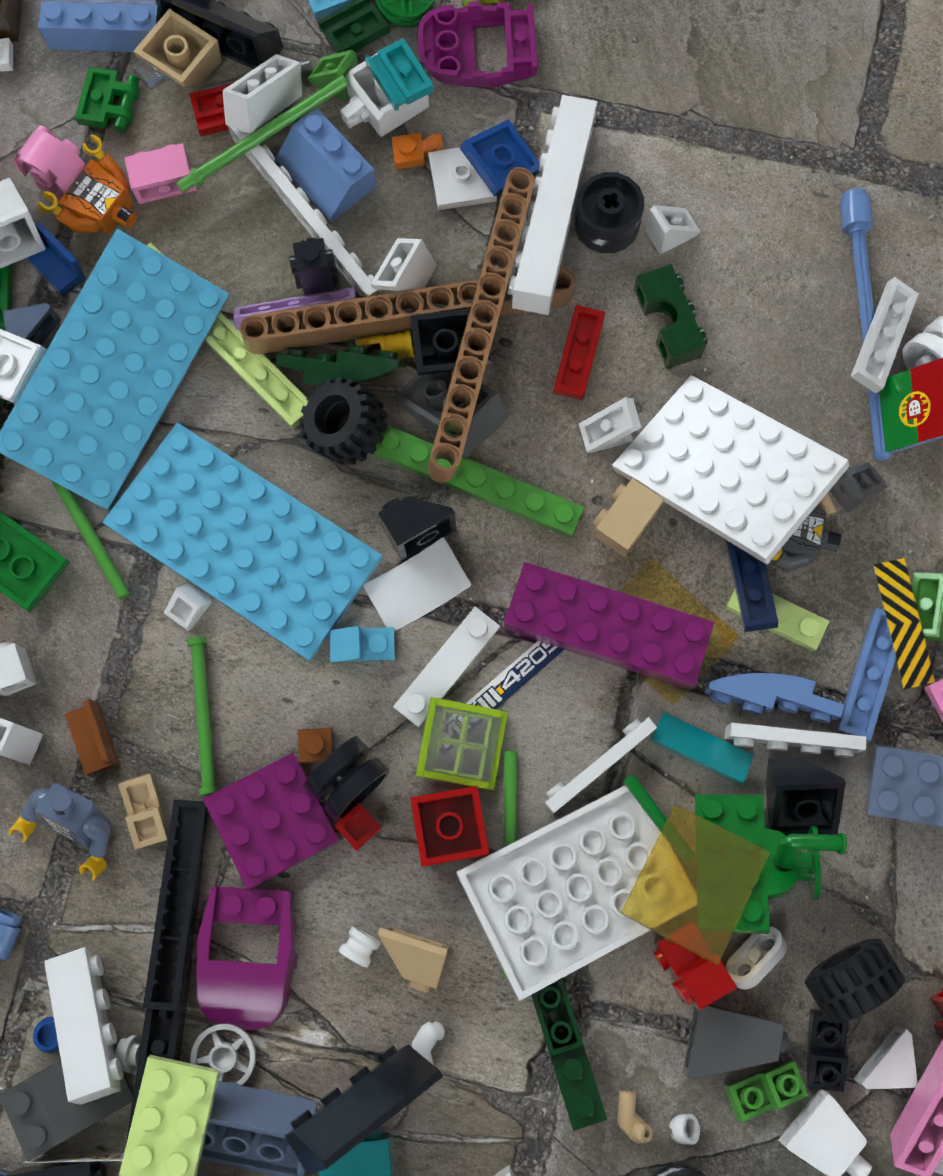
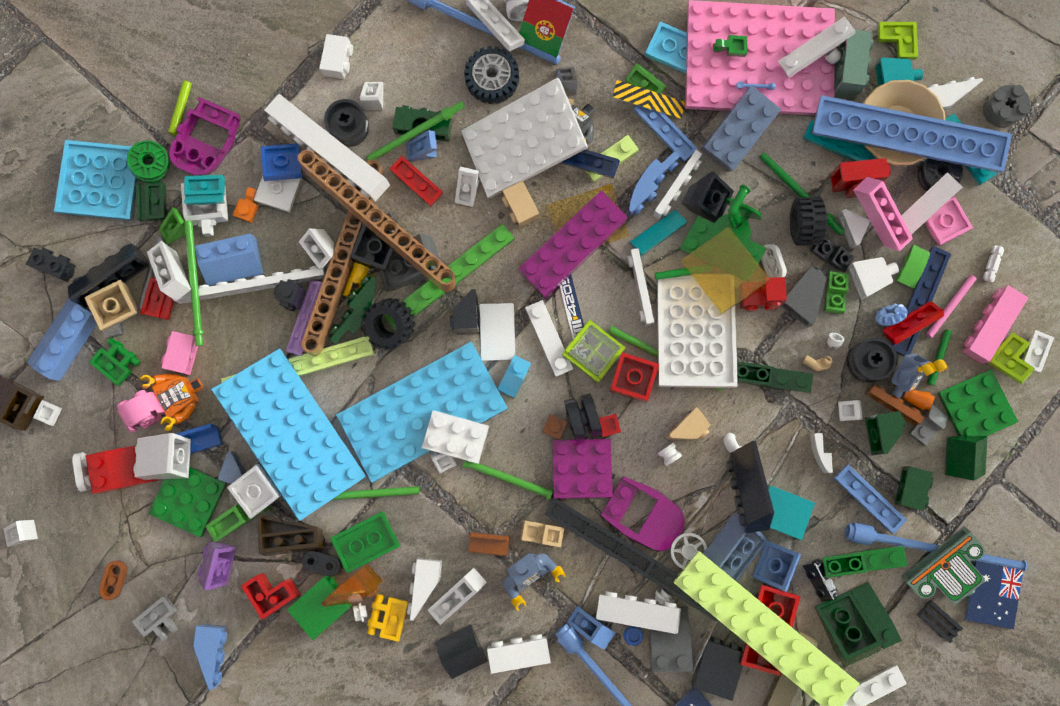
camera: 60 degrees left, 5 degrees up
(24, 969) = (591, 628): none -> medium blue slope
(223, 605) = (455, 437): none -> white plate
(634, 335) = (422, 147): none -> medium blue slope
(698, 148) = (336, 56): none -> white brick
(698, 334) = (445, 114): none -> bright green bar
(814, 356) = (491, 88): none -> wheel
(881, 1016) = (798, 190): none -> green bar

